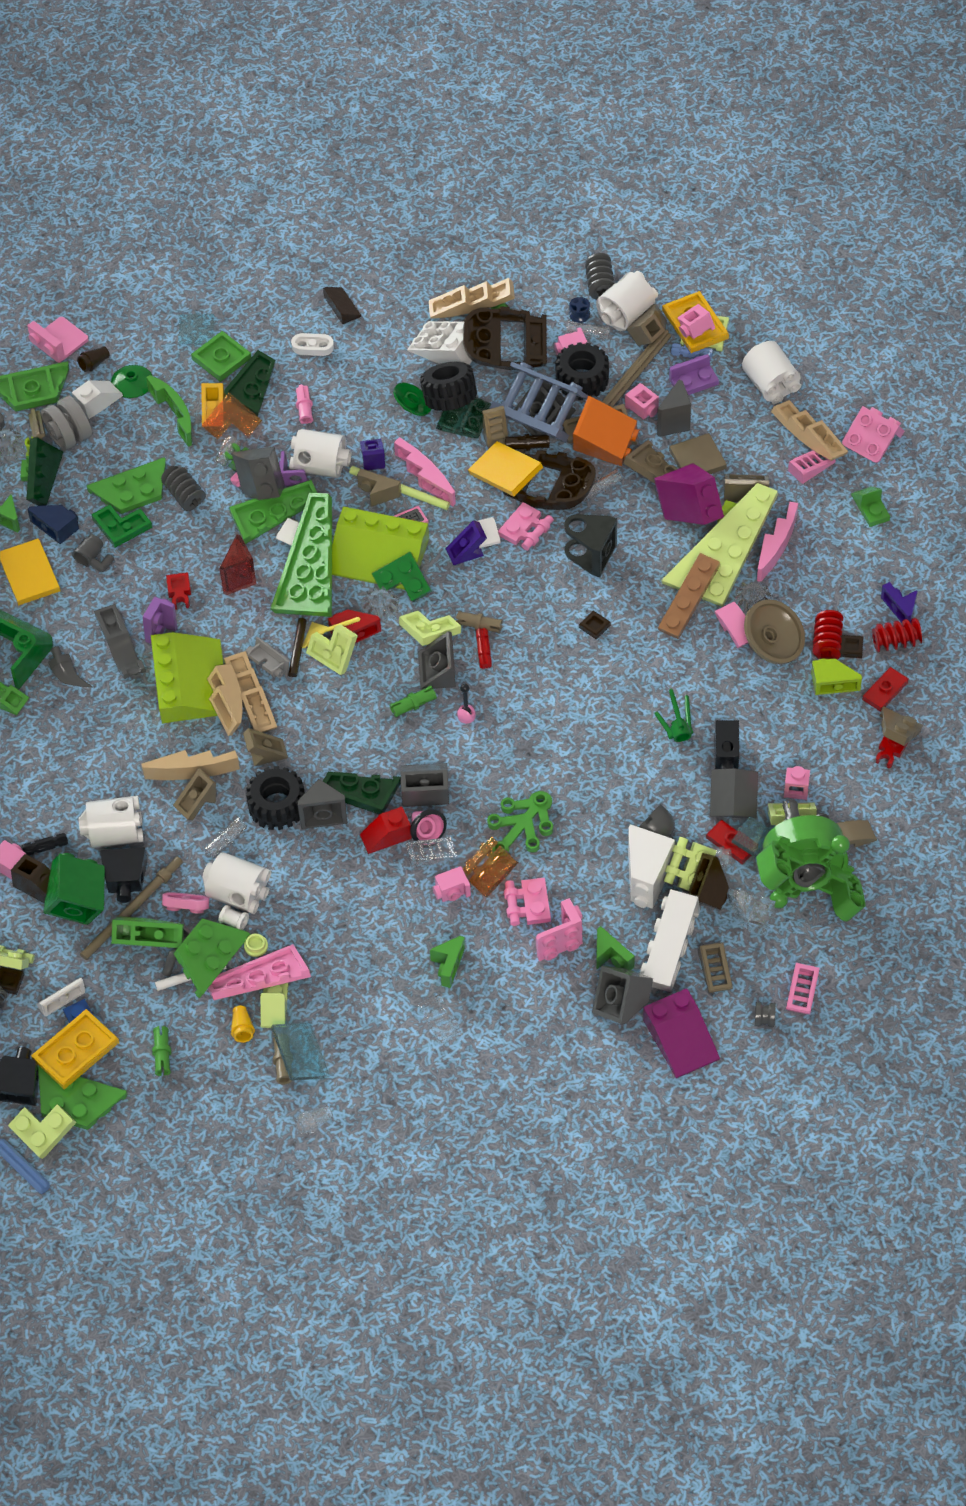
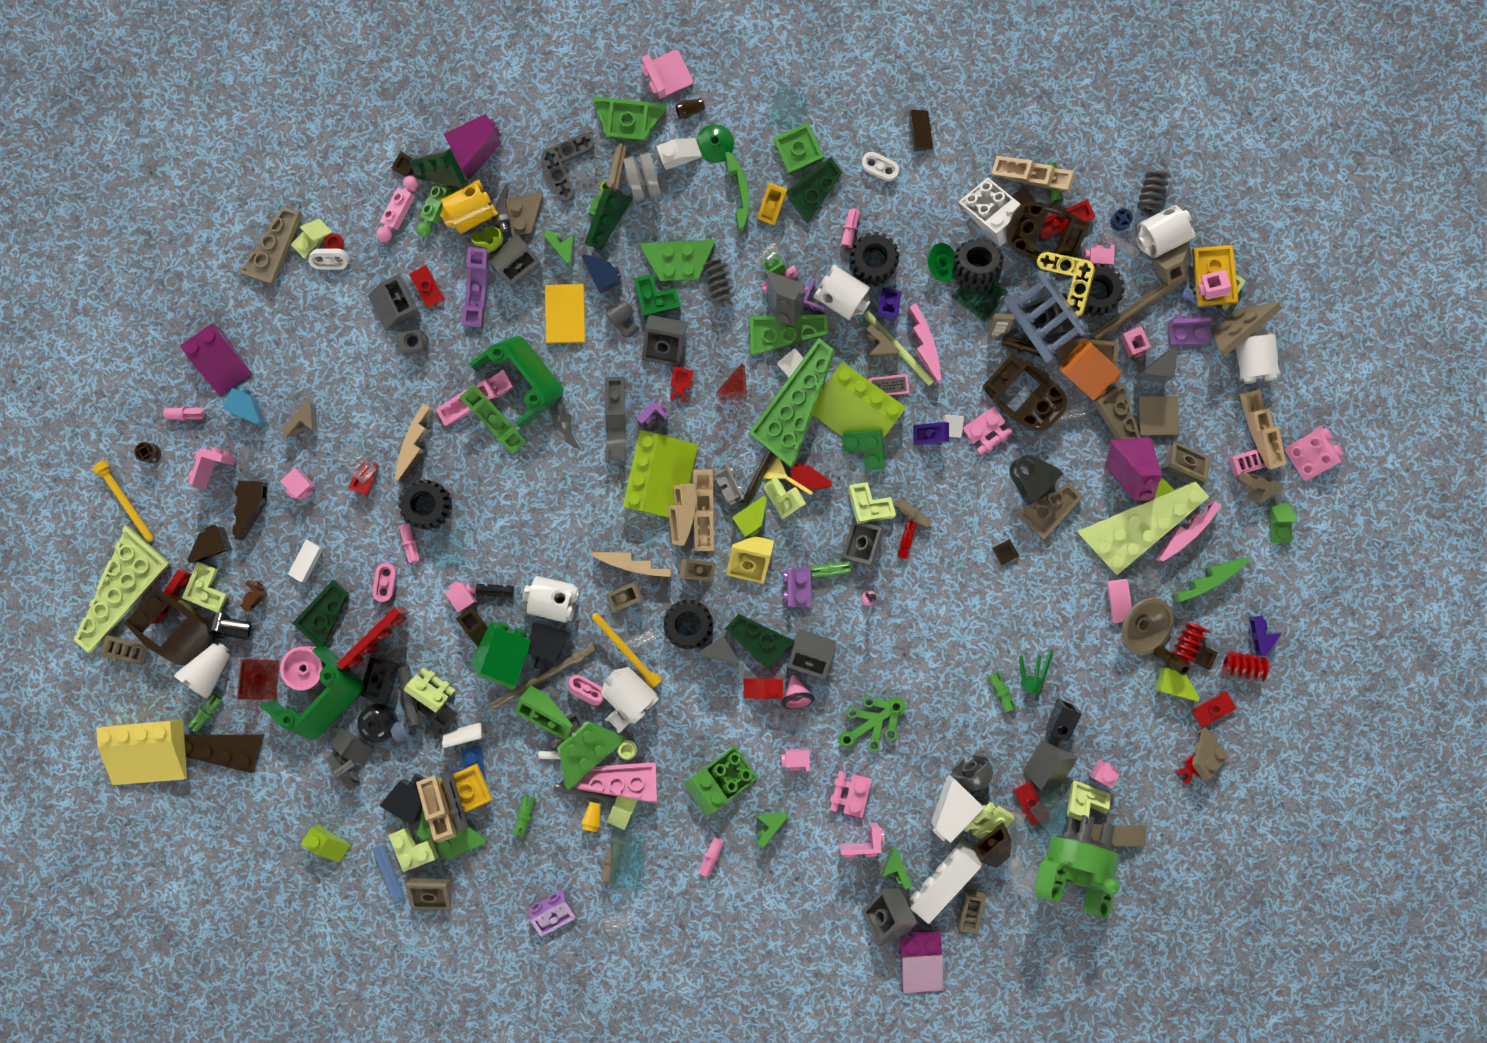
camera: 20 degrees right, 30 degrees up
(29, 985) = (441, 719): none -> pearl dark grey plate
(57, 1063) = (436, 809): none -> tan slope
(79, 1164) = (430, 893): none -> dark tan slope
(80, 1054) = (456, 807): none -> dark grey pin
(145, 558) = (664, 340): none -> dark grey slope
(211, 841) = (652, 679): none -> yellow piece
(221, 1006) = (587, 794): none -> dark grey bar
(231, 412) = (783, 218): clear orange plate -> none
(232, 1137) = (551, 913): none -> medium lavender bracket
(304, 681) = (751, 518): none -> lime slope
(319, 719) = (750, 559): none -> light yellow slope
(340, 404) = (879, 243): none -> black tyre
(372, 938) = (720, 781): none -> bright green slope
(383, 728) = (798, 587): none -> medium lavender bracket
(395, 1015) = (711, 856): none -> bright pink axle
(493, 870) = (834, 761): clear orange plate -> none
(505, 468) = (992, 369): yellow tile -> none
(513, 334) = (1055, 224): none -> red plate
(549, 355) = (1074, 271): none -> light yellow beam
(624, 572) = (1050, 510): none -> dark tan wing
(650, 749) = (1002, 692): none -> bright green pin
(689, 596) = (1093, 560): medium nougat plate -> none
(742, 346) = (1242, 325): none -> dark tan wing
(765, 1014) = (992, 971): dark grey wheel -> none
(805, 970) = (1025, 952): bright pink slope -> none
(814, 651) = (1171, 660): none -> dark brown pin
(824, 570) = (1215, 576): none -> bright green slope
(831, 475) = (1260, 486): none -> dark tan slope

